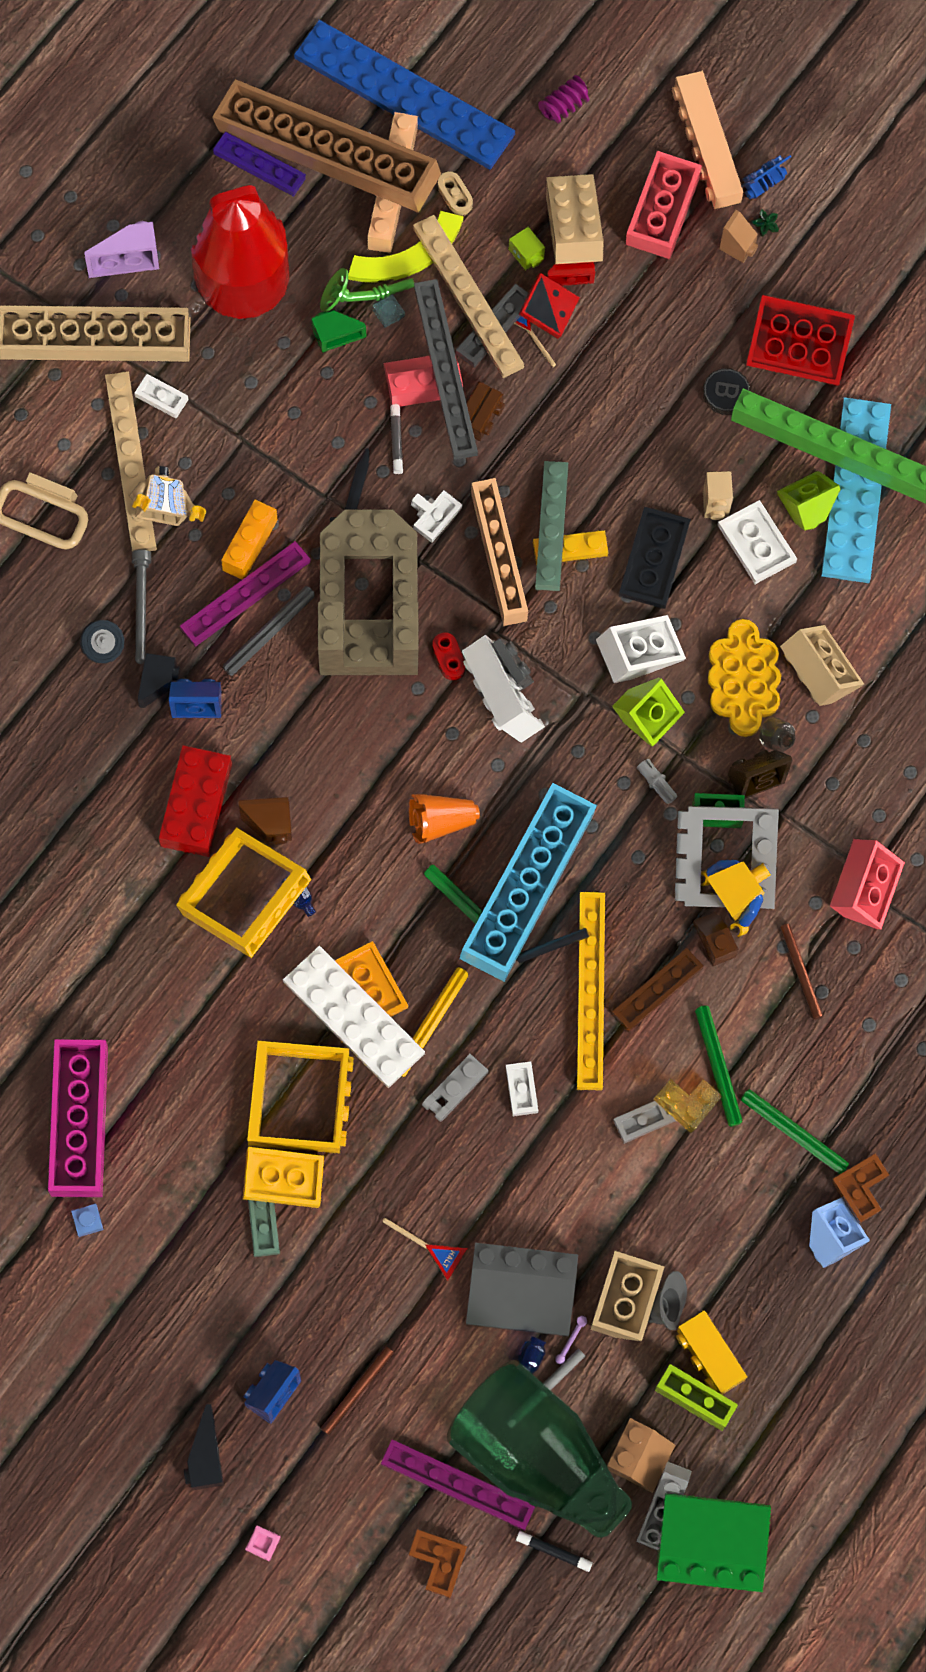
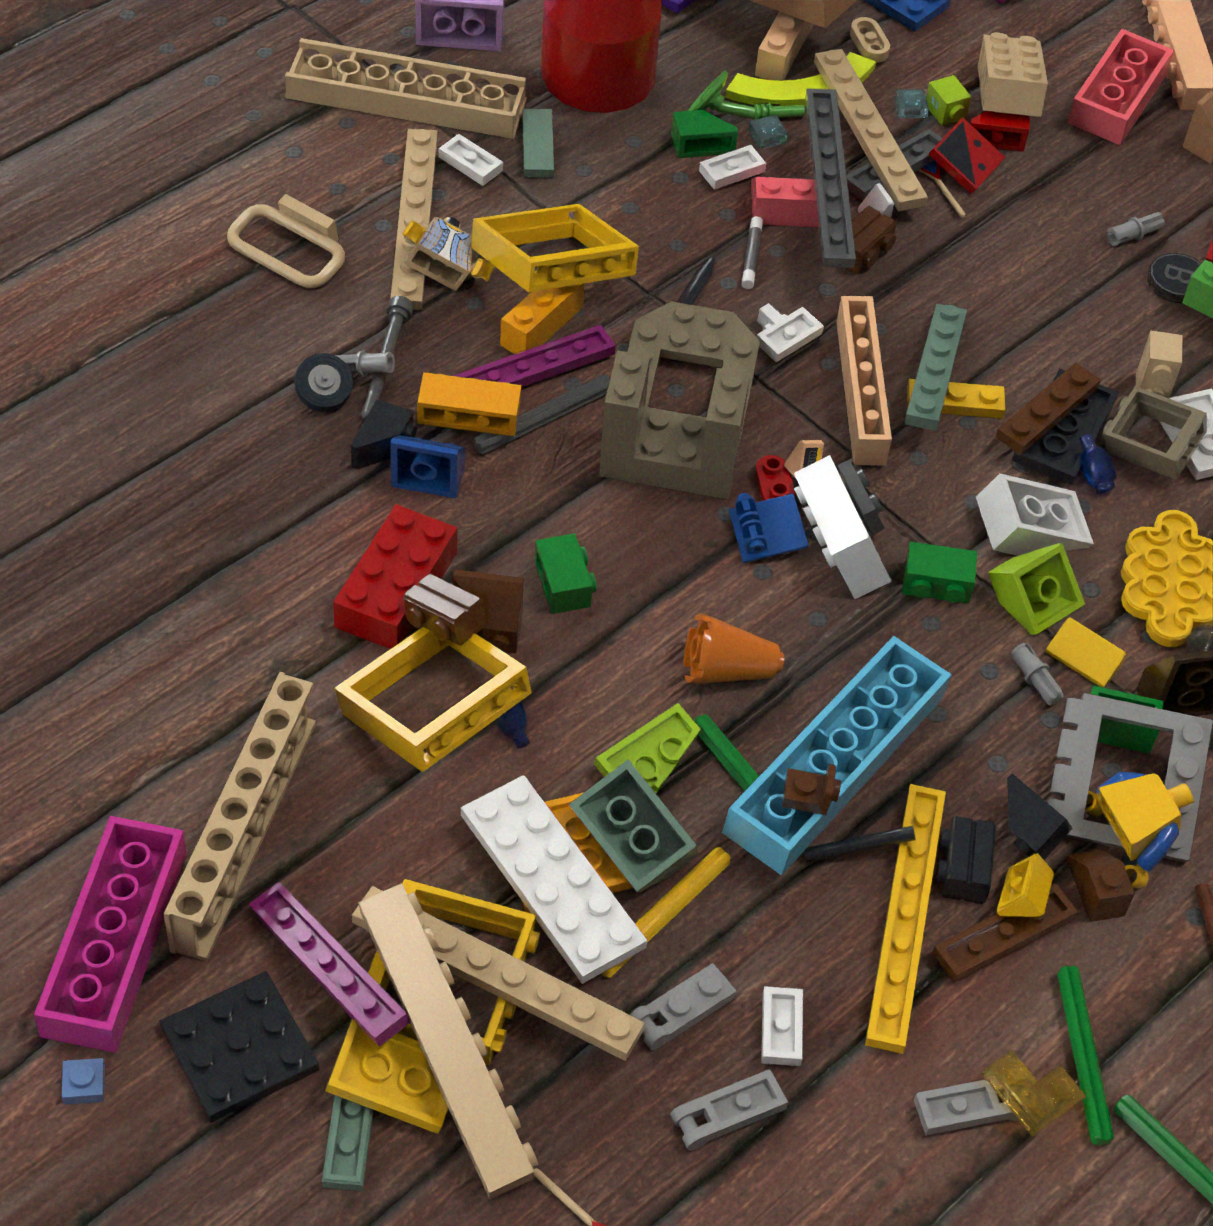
camera: 10 degrees right, 20 degrees down
(128, 617) = (369, 362): none -> light grey axle
(140, 1016) = (240, 820): none -> tan tile
(178, 1175) = (239, 1046): none -> black plate
(209, 364) = (538, 143): none -> sand green tile
(214, 642) = (468, 404): none -> light orange brick
(223, 1112) = (330, 964): none -> magenta plate
(238, 831) = (444, 610): none -> reddish brown brick
(264, 509) = (607, 256): none -> yellow window
(310, 1151) = (447, 1042): none -> tan brick
(312, 771) = (564, 573): none -> green brick
(332, 1096) = (529, 987): none -> tan plate
(367, 357) = (732, 167): none -> white plate
(399, 907) = (653, 747): none -> lime wing
(401, 970) = (634, 827): none -> sand green slope
(450, 698) = (767, 527): none -> blue hinge
(467, 633) = (804, 454): none -> light nougat slope
(485, 373) = (879, 200): none -> white slope
(497, 254) = (911, 103): none -> clear light blue plate
(498, 1153) = (729, 1109): none -> light grey plate
(513, 925) = (810, 790): none -> reddish brown bracket
(578, 712) = (939, 572): none -> green brick
(626, 941) = (968, 859): none -> black brick
(639, 548) = (1048, 408): none -> reddish brown plate
(666, 903) = (1033, 820): none -> black slope
(667, 956) = (1026, 888): none -> yellow slope
(680, 591) = (1096, 466): none -> clear blue plant
(689, 349) = (1134, 228): none -> light grey axle
(689, 756) = (1086, 652): none -> yellow slope
(742, 563) = (1141, 401): none -> dark tan window

